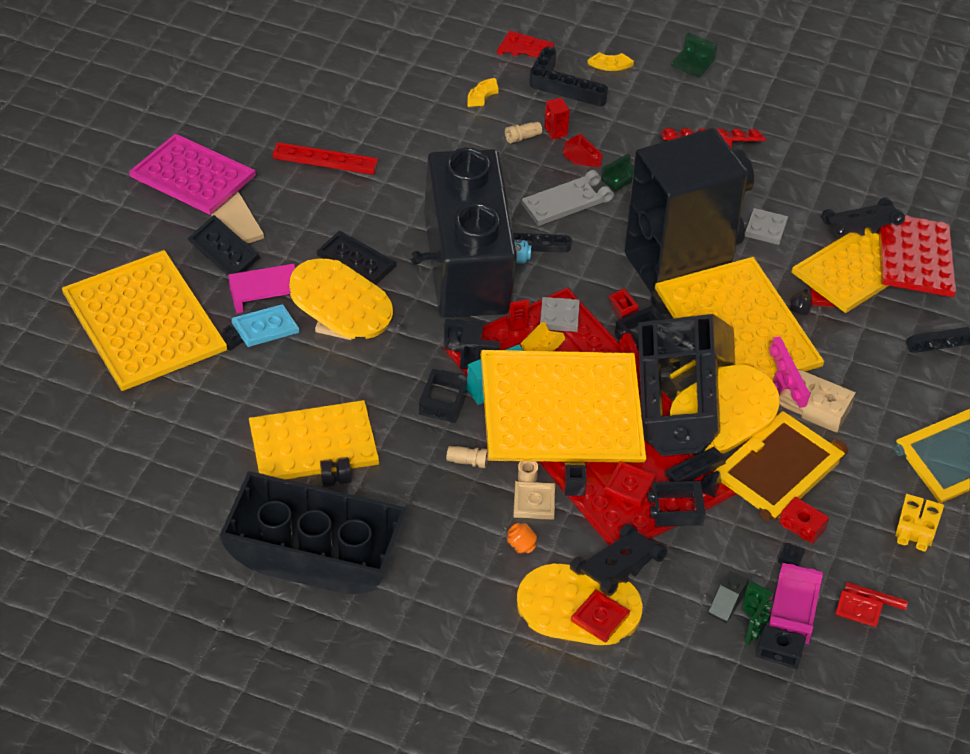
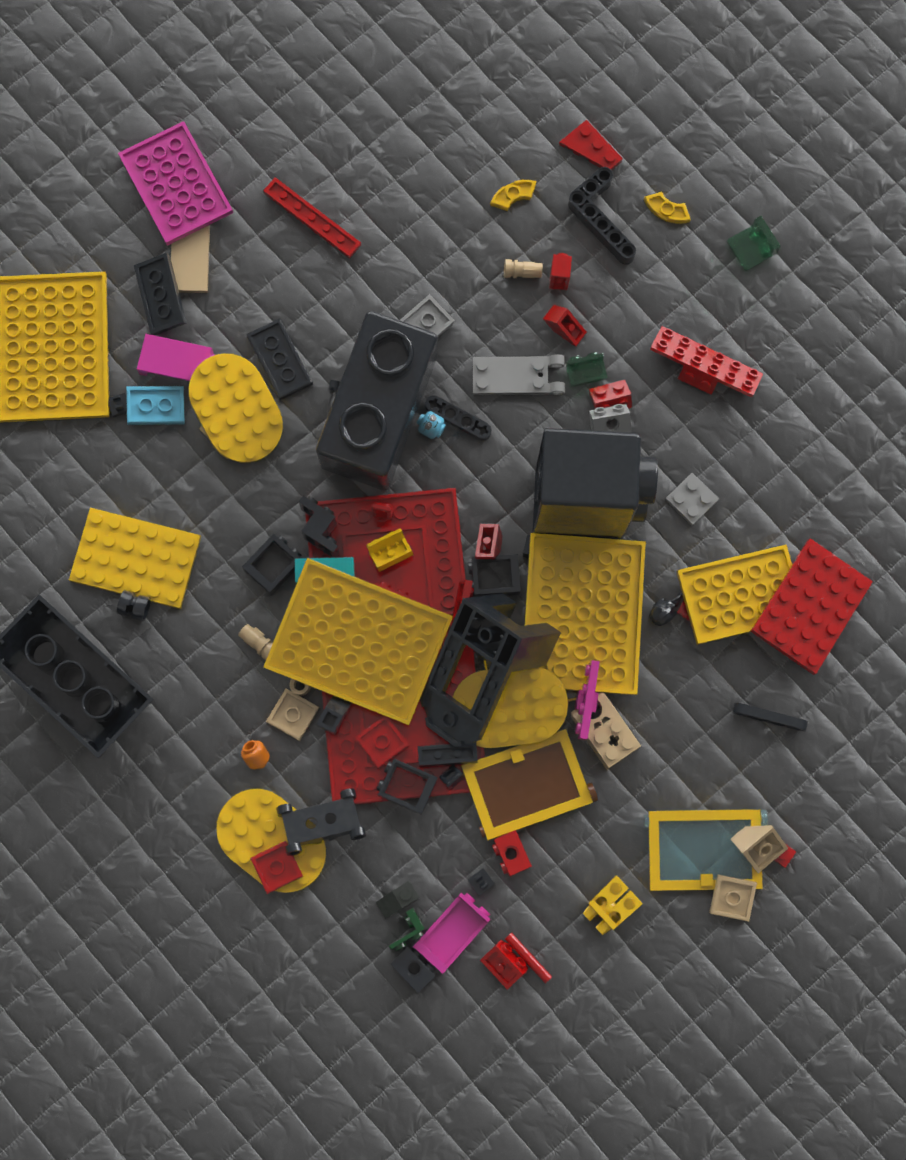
camera: 25 degrees right, 30 degrees up
(560, 313) = (427, 519): light grey plate -> none
(859, 219) = (805, 552): black piece -> none

